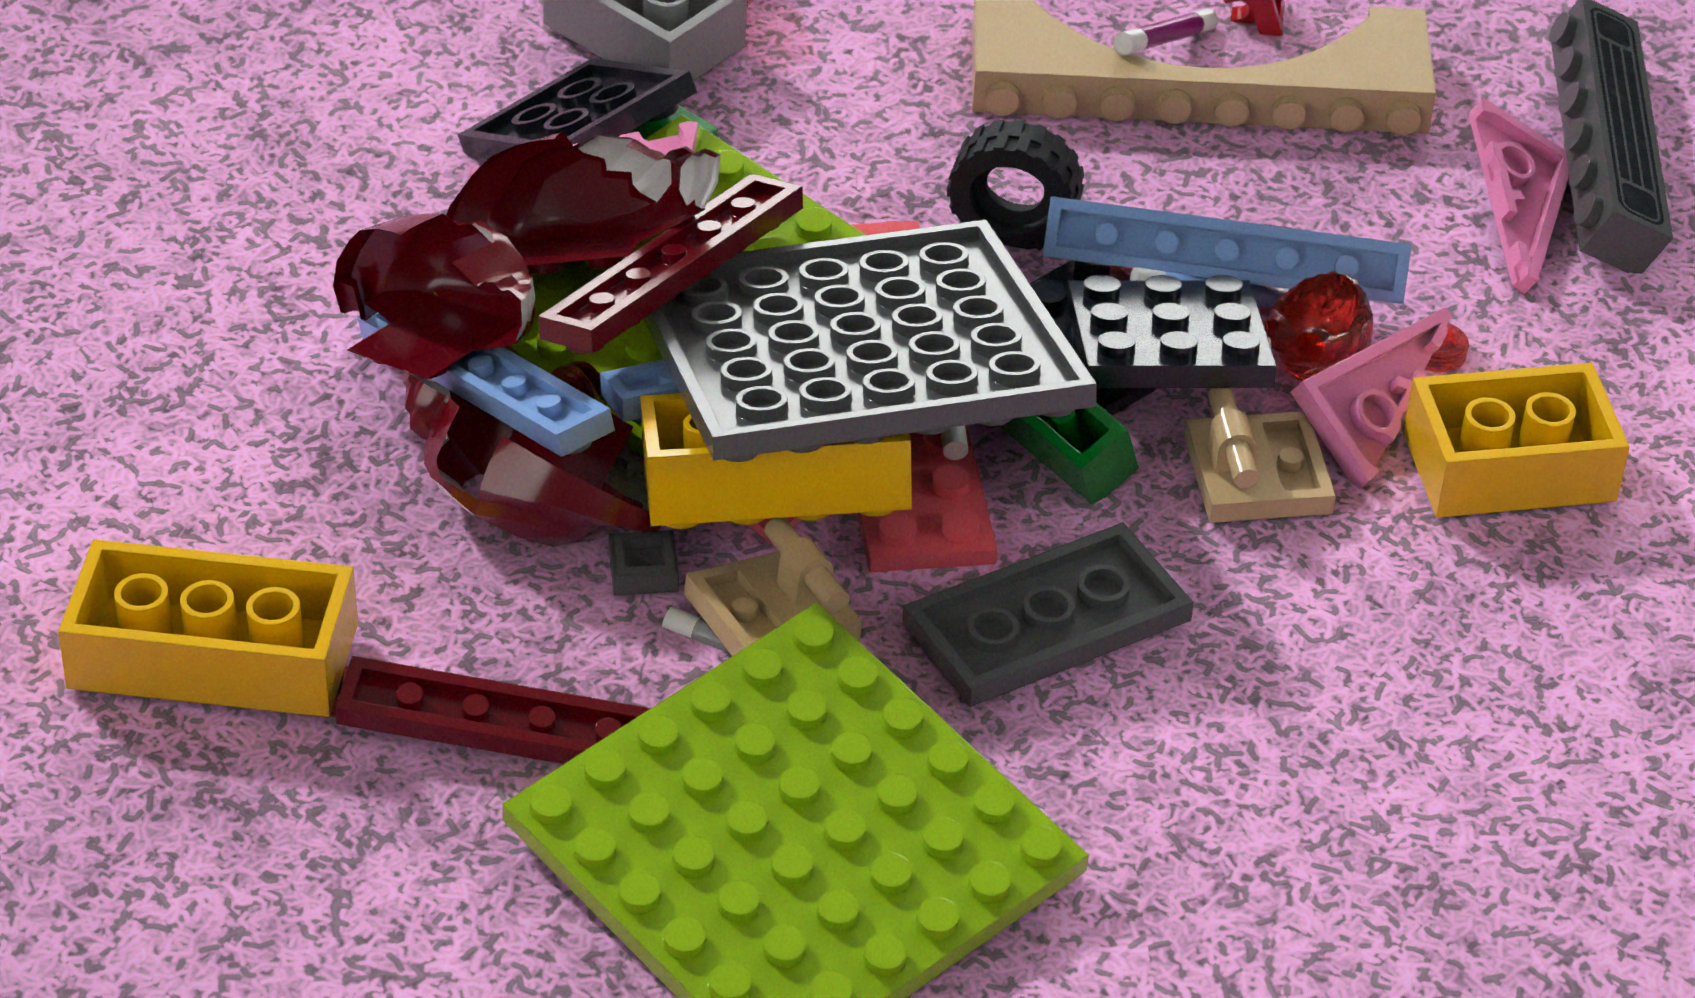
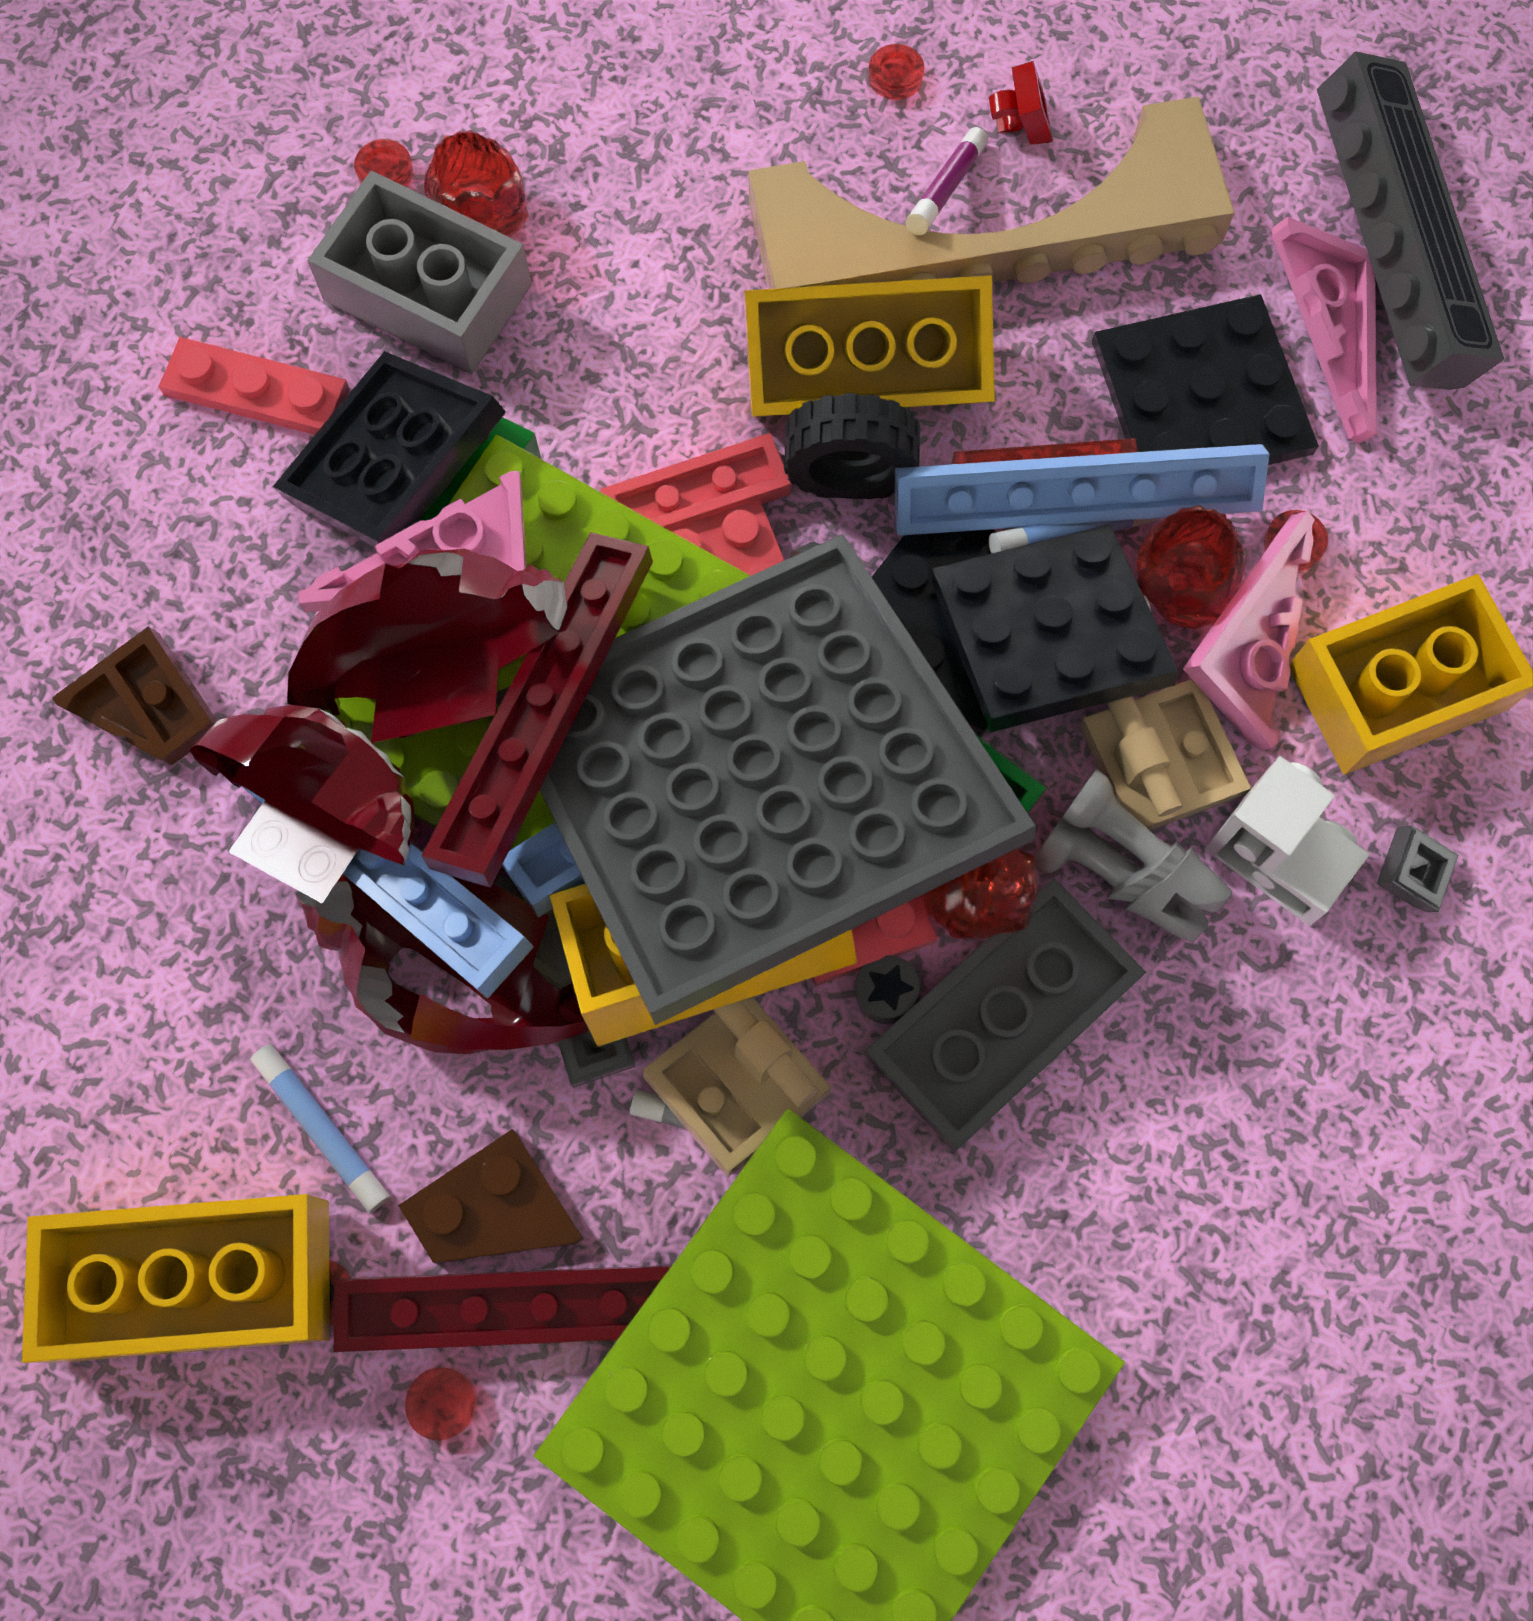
camera: 10 degrees left, 30 degrees up
(284, 254) = (141, 698): none -> reddish brown wing
(366, 579) = (320, 1128): none -> light blue bar
(420, 783) = (441, 1403): none -> clear red tile
(455, 67) = (252, 386): none -> coral plate
(512, 649) = (490, 1207): none -> reddish brown wing
(884, 199) = (706, 484): none -> coral plate
(935, 573) = (887, 989): none -> dark grey tile
(1046, 502) = (987, 899): none -> clear red hair
(1103, 107) = (883, 339): none -> yellow brick
(1206, 545) = (1163, 889): none -> light grey piece
(1345, 529) = (1286, 846): none -> white brick
(1388, 205) = (1205, 382): none -> black plate
(1487, 588) = (1417, 869): none -> dark grey tile

